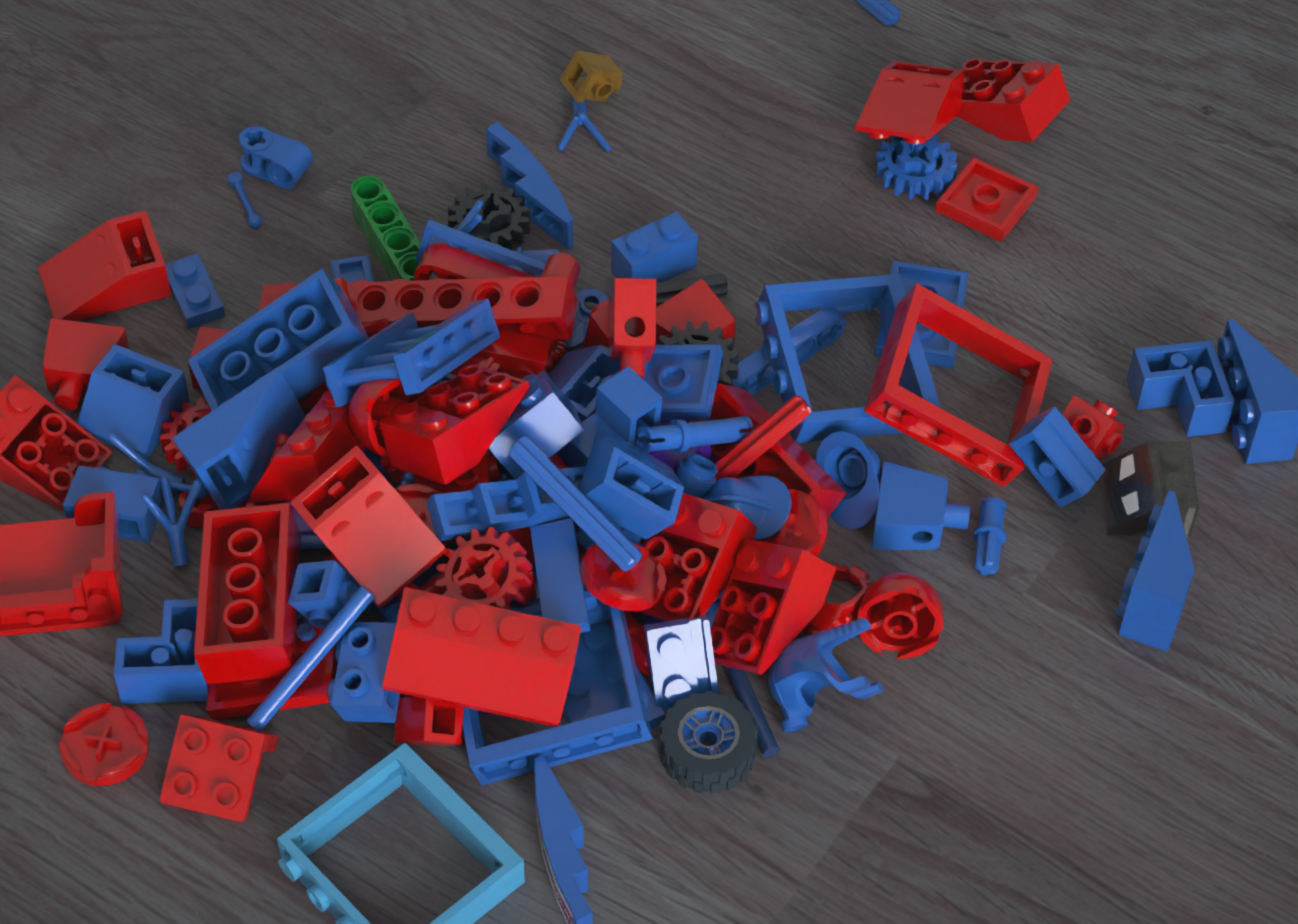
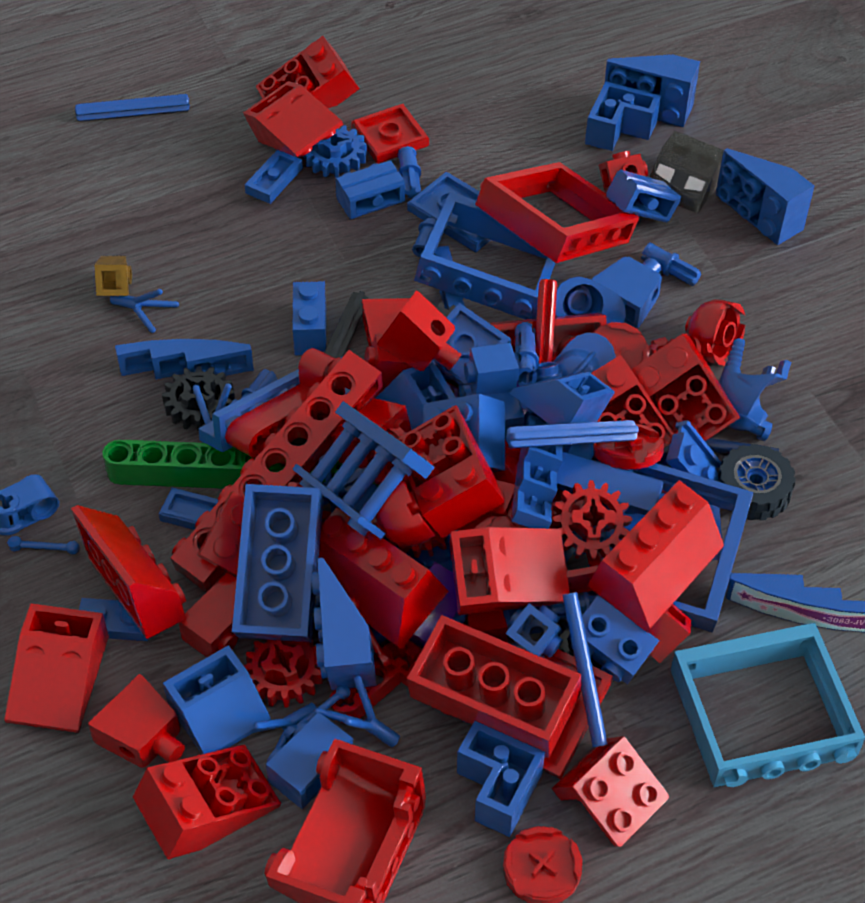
camera: 60 degrees left, 0 degrees up
(226, 256) = (130, 571): none -> red slope
(835, 136) = (273, 176): none -> blue plate
(882, 219) = (370, 189): none -> blue brick
(942, 242) = (409, 171): none -> blue axle

